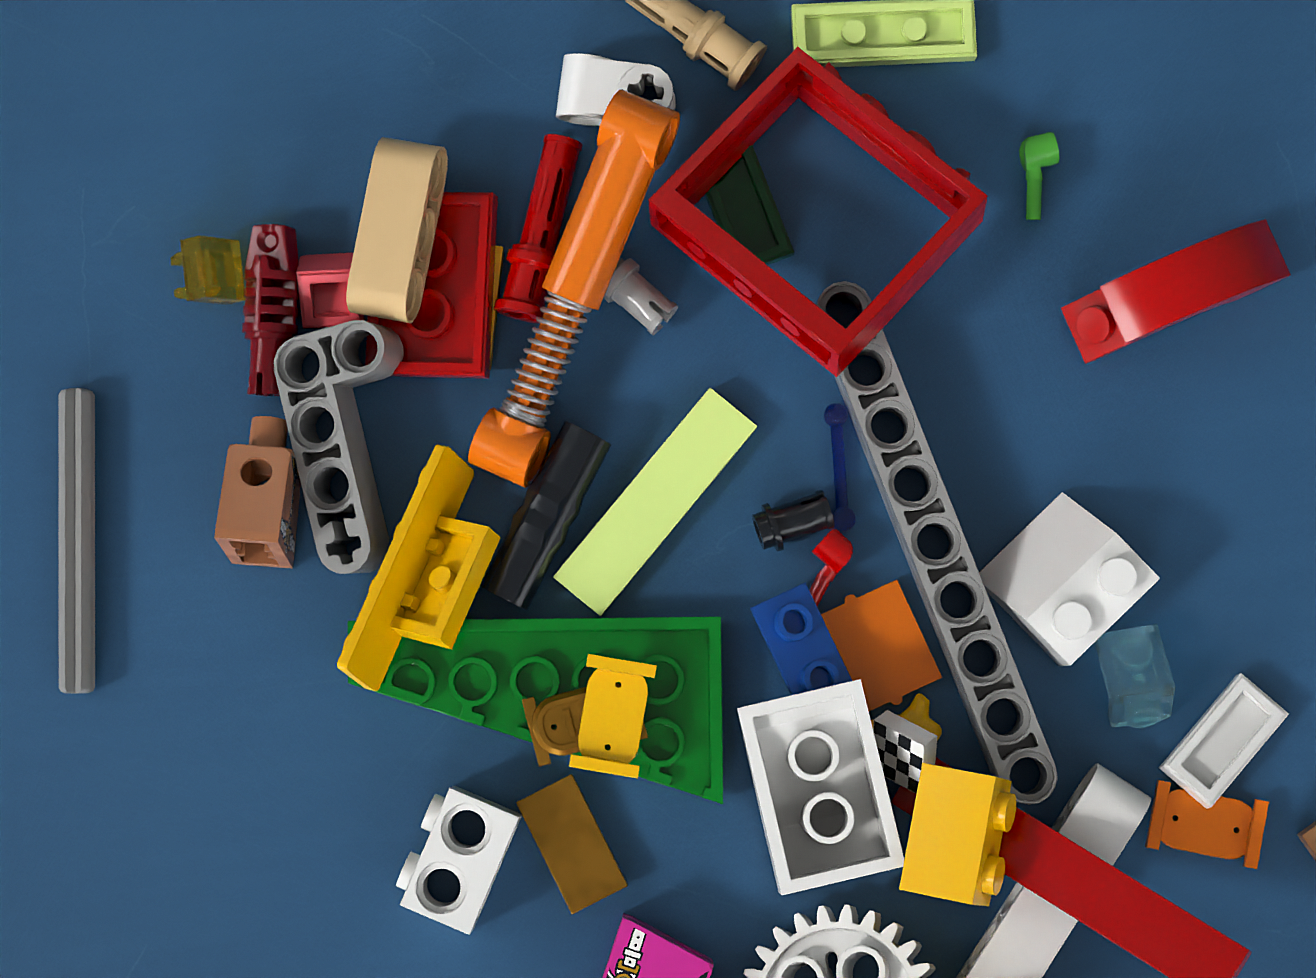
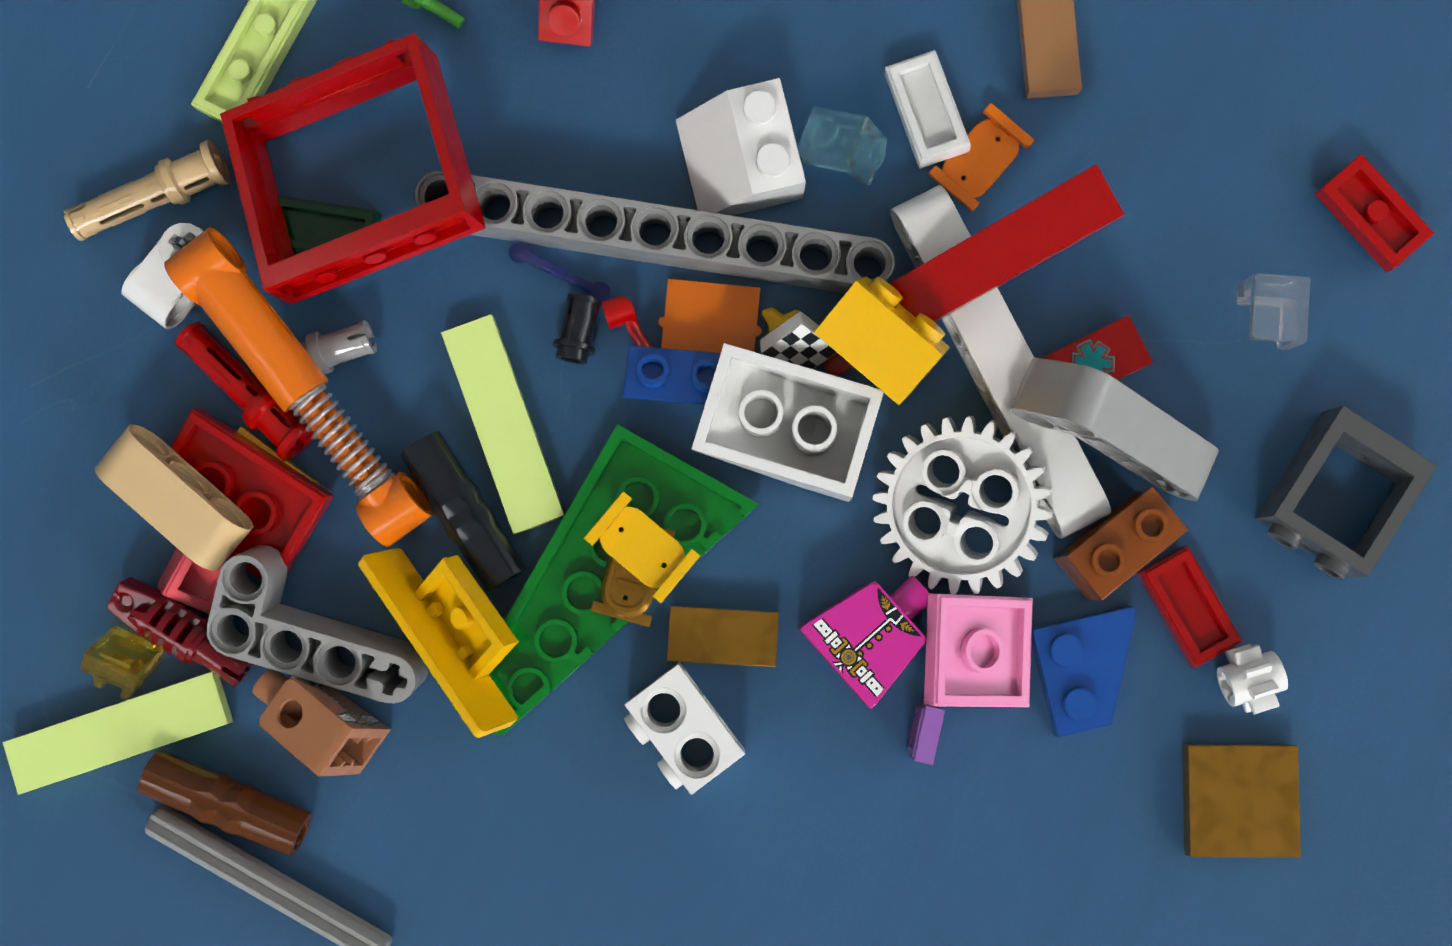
camera: 60 degrees left, 0 degrees up
(131, 452) = (225, 802): none -> reddish brown axle
(139, 307) = (117, 732): none -> yellowish green tile

